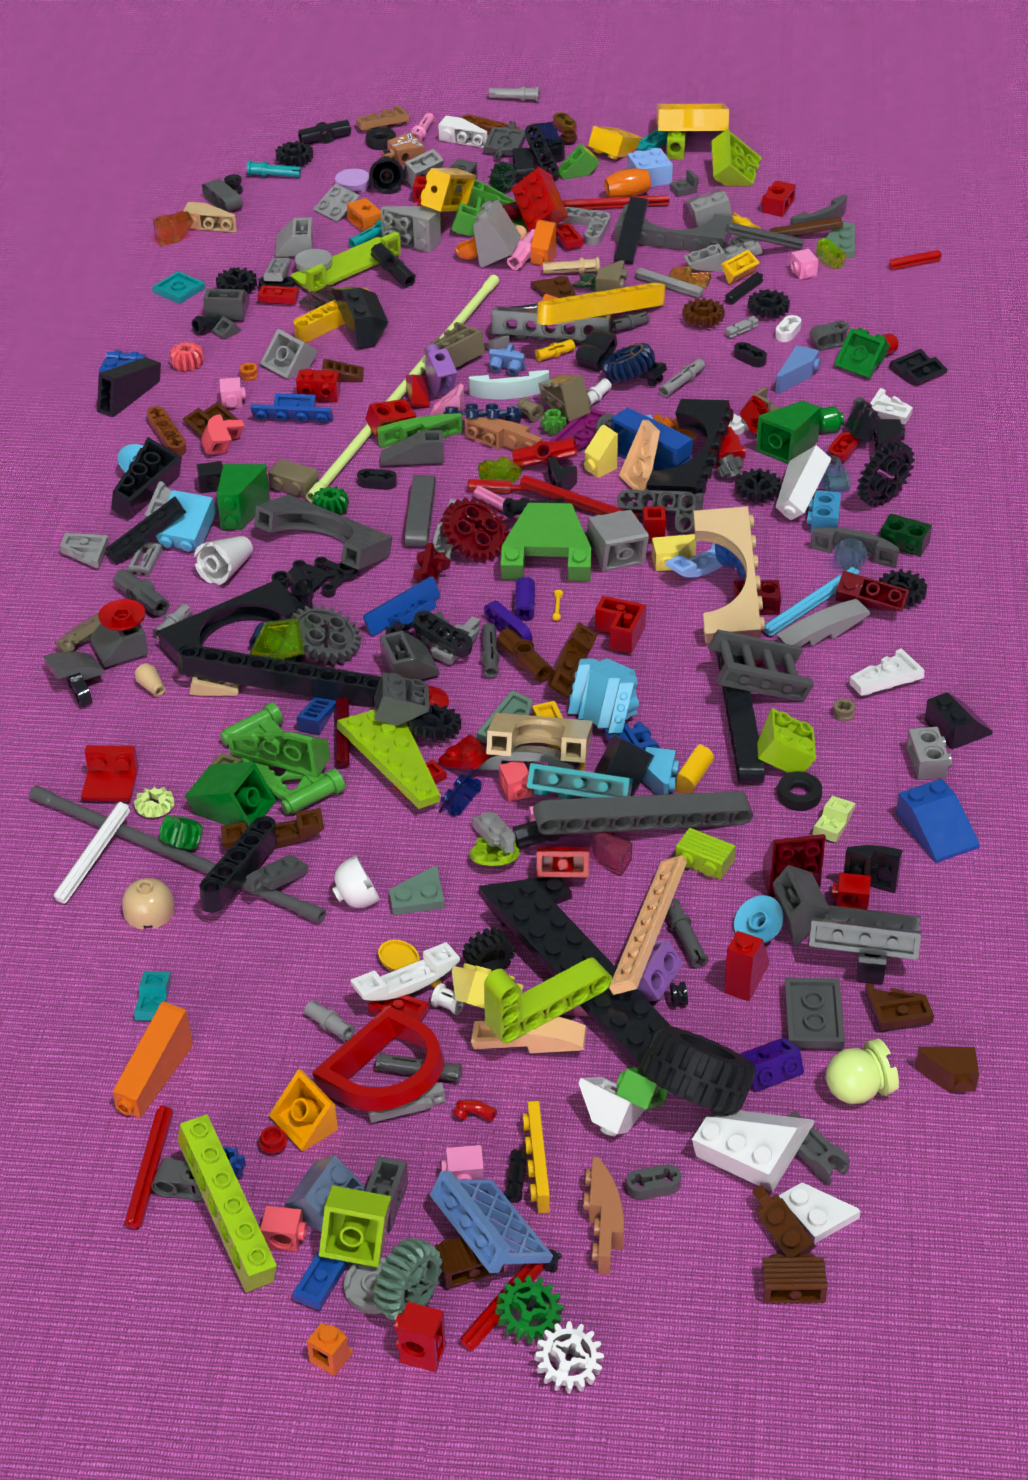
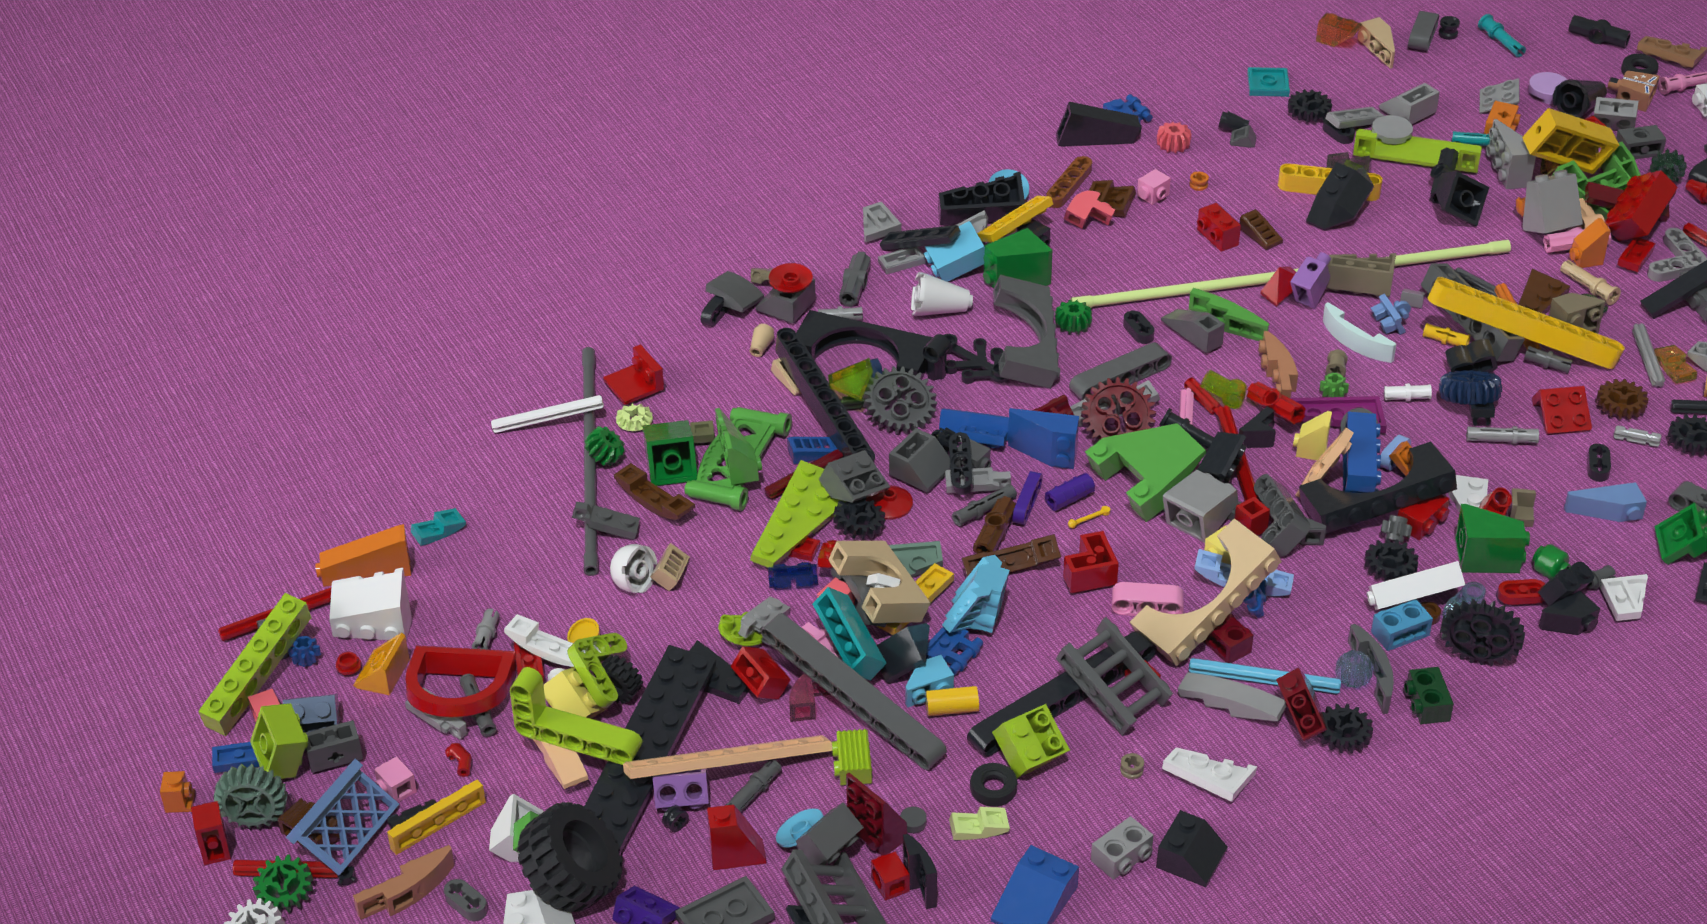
camera: 55 degrees right, 0 degrees up
(147, 903) = (524, 472): tan cylinder -> none
(193, 467) = (1014, 219): none -> yellow plate
(226, 303) = (1268, 117): dark grey slope -> none
(235, 1080) = (370, 606): none -> white wedge
(237, 863) = (595, 490): black beam -> none
(278, 294) = (1323, 138): red plate -> none
(288, 355) = (1243, 188): light grey slope -> none
(292, 406) = (1176, 230): blue bracket -> none
(292, 478) = (1080, 278): dark tan brick -> none
(294, 153) = (1541, 33): black gear -> none
(375, 863) = (664, 577): none -> tan slope
(387, 413) = (1221, 283): red brick -> none
(418, 893) = (663, 611): sand green wing -> none
(429, 265) = (1461, 196): none -> black slope
(454, 398) = (1285, 317): bright pink slope -> none
(459, 948) = (600, 688): none -> lime beam
(460, 576) = (1044, 436): none -> blue slope
(491, 411) = (1296, 342): dark blue plant -> none
(545, 736) = (880, 581): none -> white plate
(567, 395) = (1368, 373): dark tan wedge -> none
(587, 497) = (1223, 456): none -> black slope
(681, 617) = (1131, 598): none -> bright pink beam
(688, 339) = (1564, 409): none -> red bracket
(788, 328) = (1675, 468): white beam -> none

